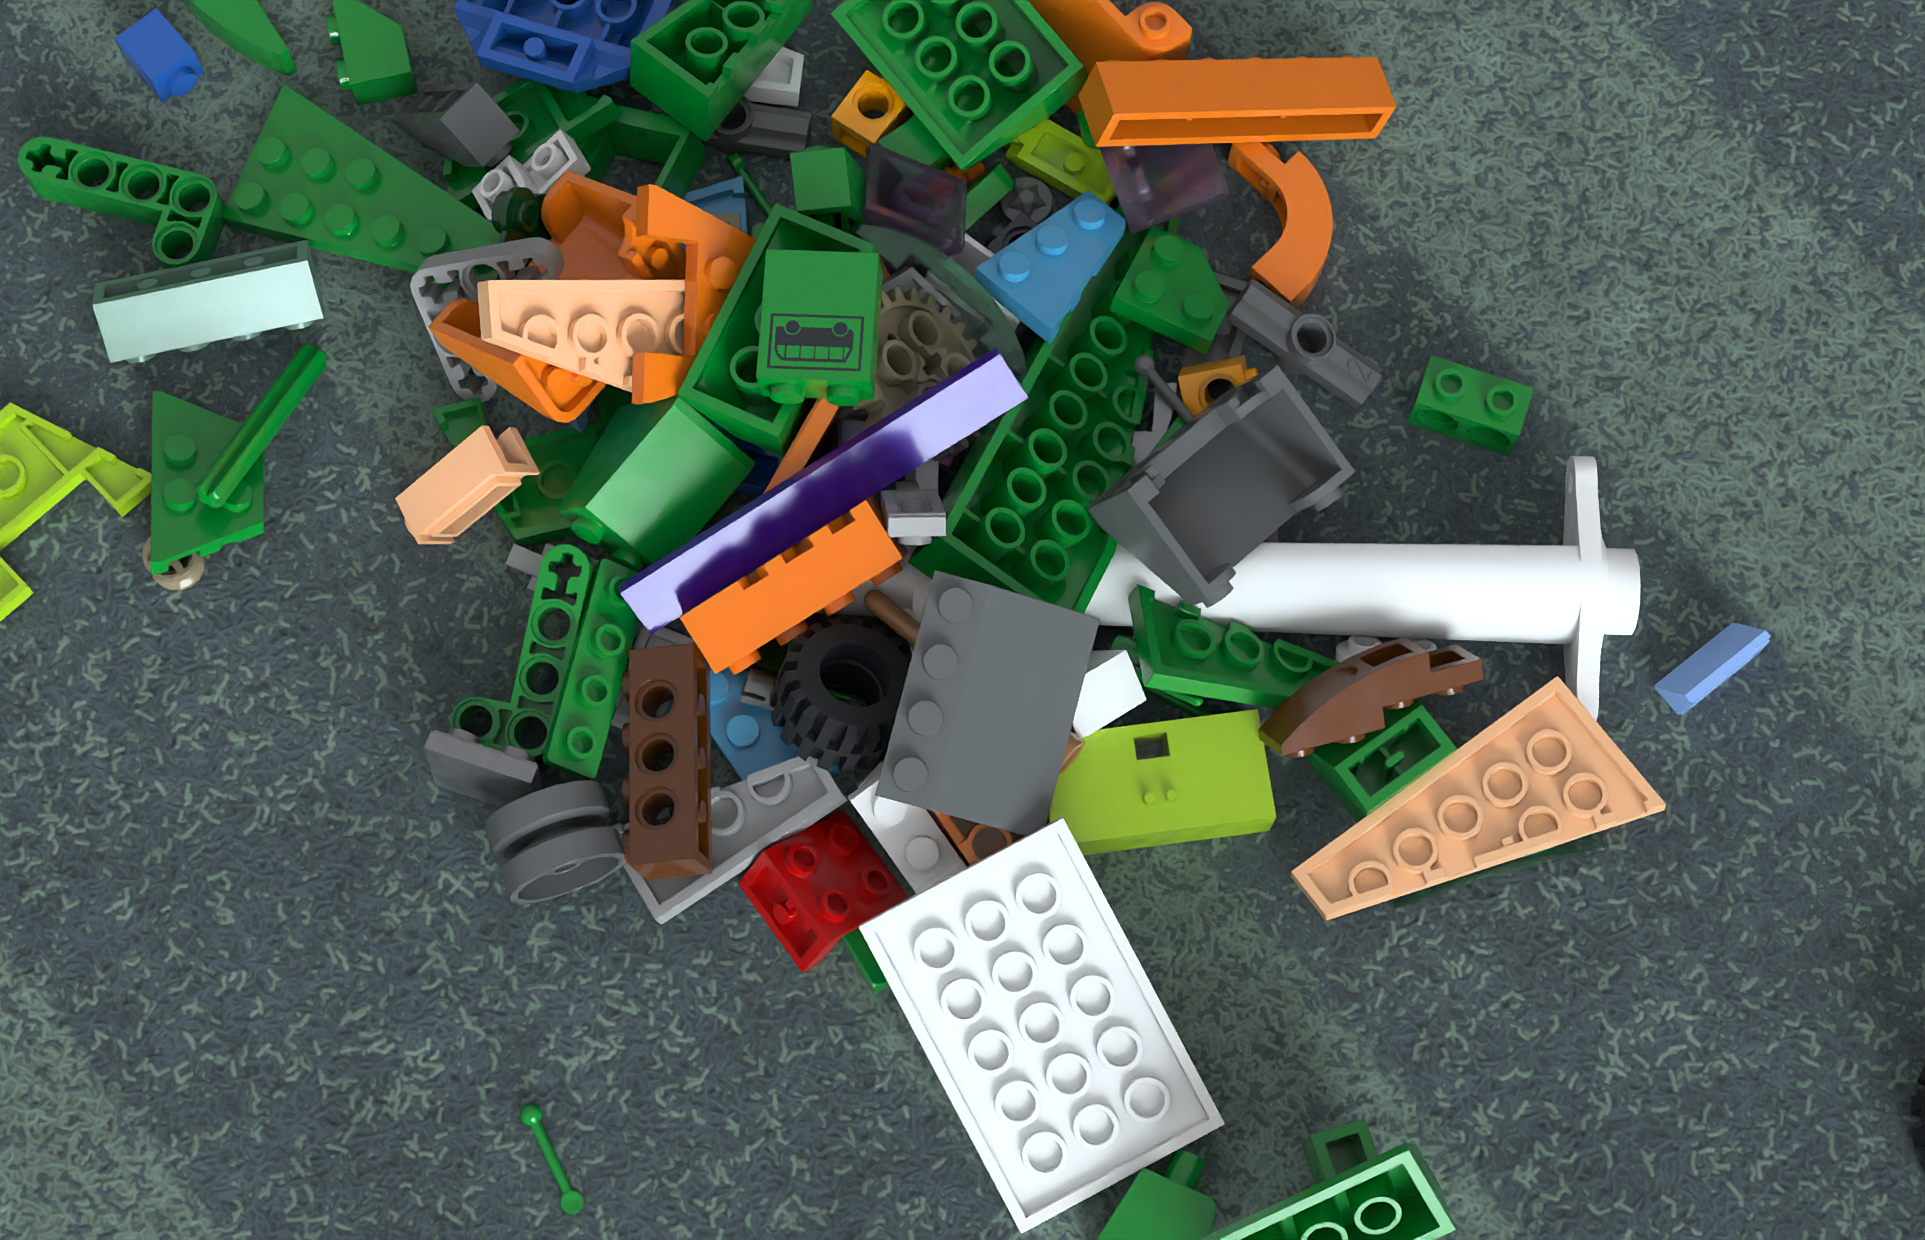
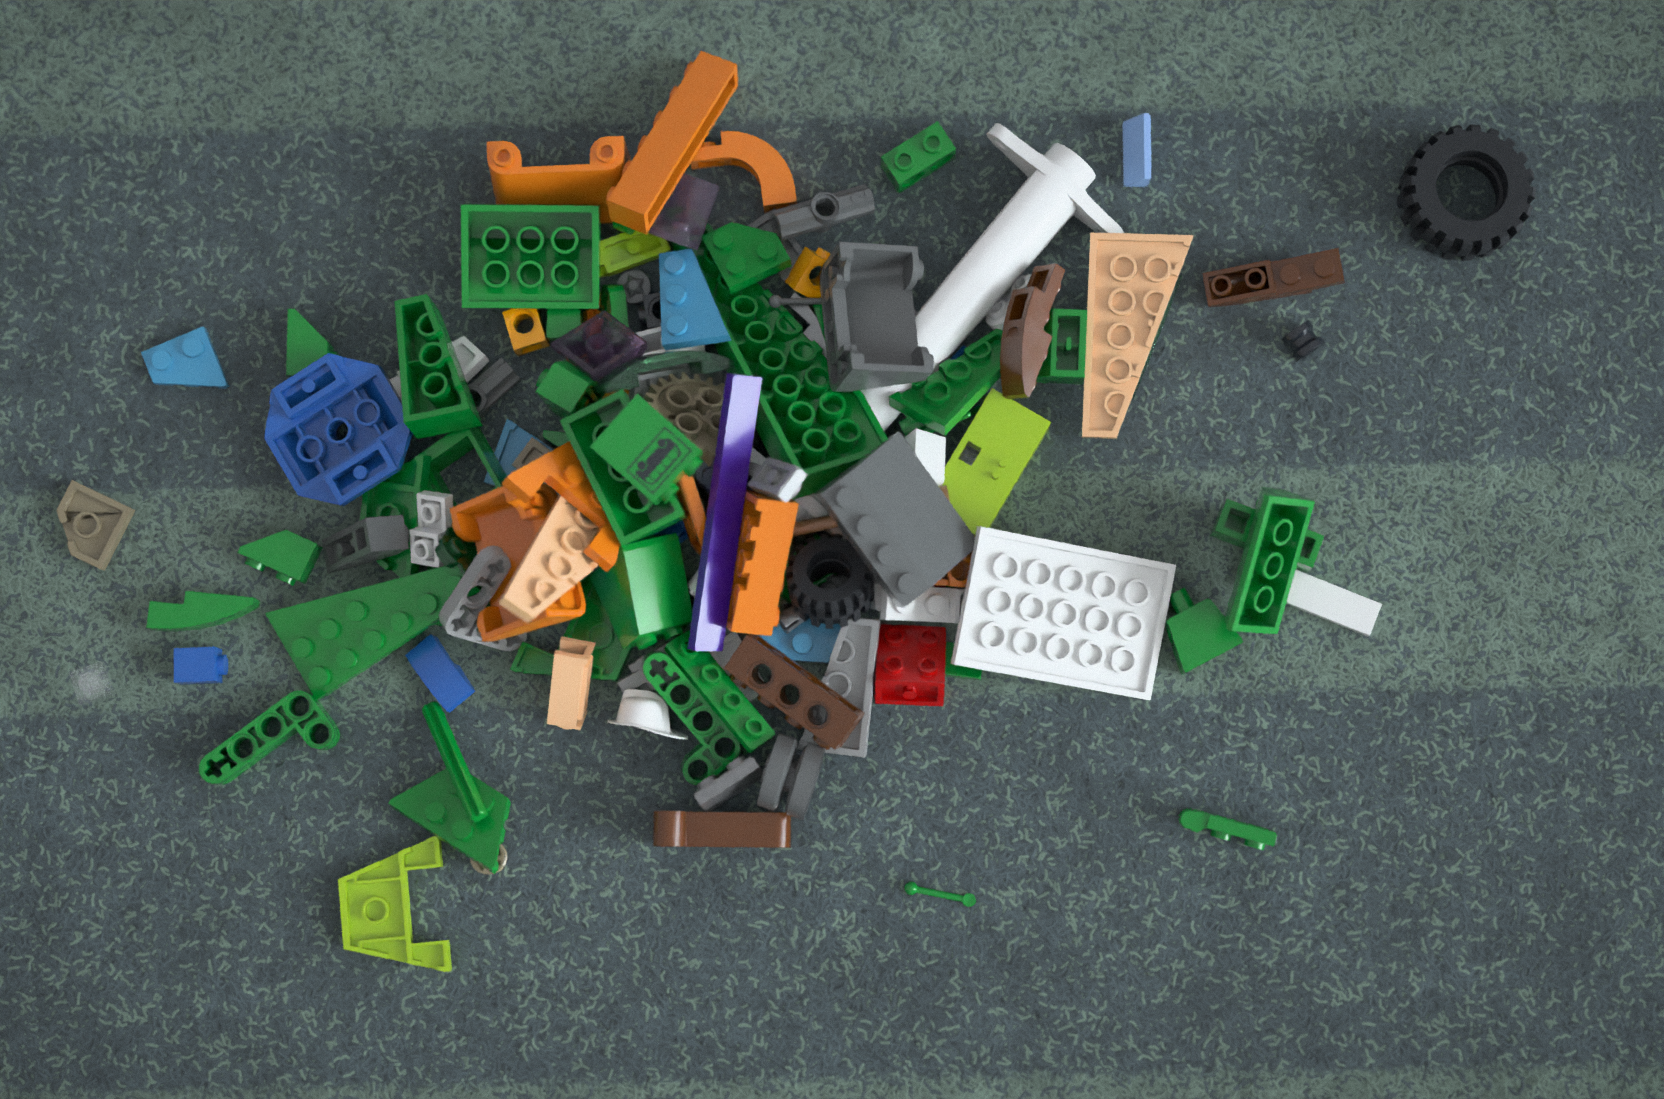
camera: 40 degrees left, 10 degrees up
(208, 302) = (362, 740): brick -> none
(362, 332) = (439, 673): none -> blue slope
(420, 808) = (721, 829): none -> reddish brown beam
(500, 604) = (646, 711): none -> white piece
(739, 168) = (550, 421): green hinge -> none
(1655, 1063) = (1302, 340): none -> black wheel
(1699, 963) = (1273, 279): none -> reddish brown slope

